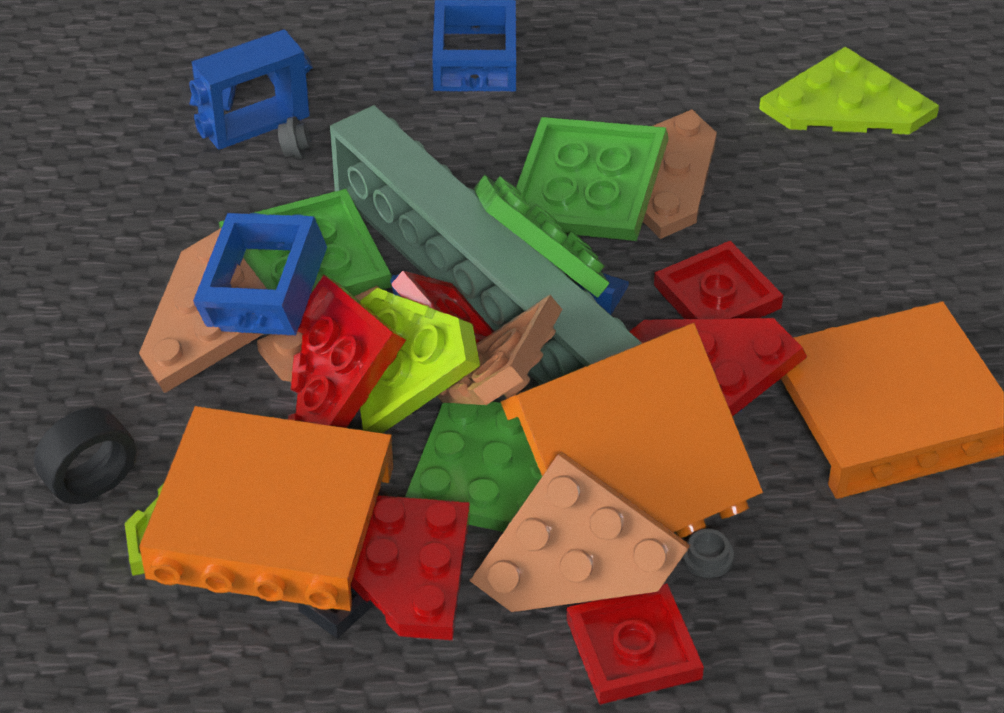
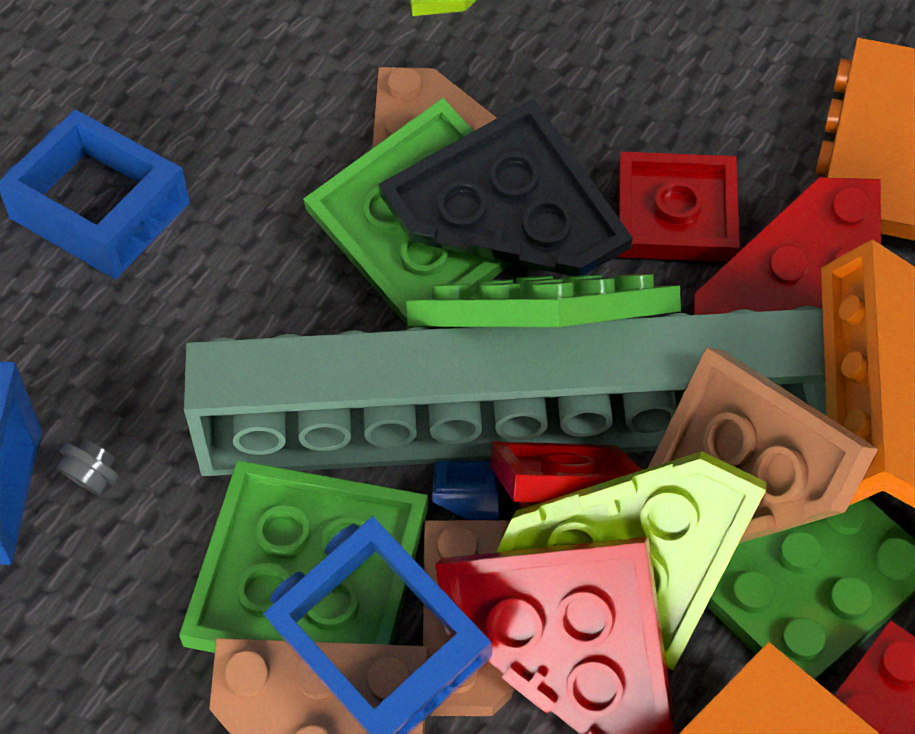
camera: 55 degrees left, 10 degrees up
(620, 192) = (509, 198): none -> black plate

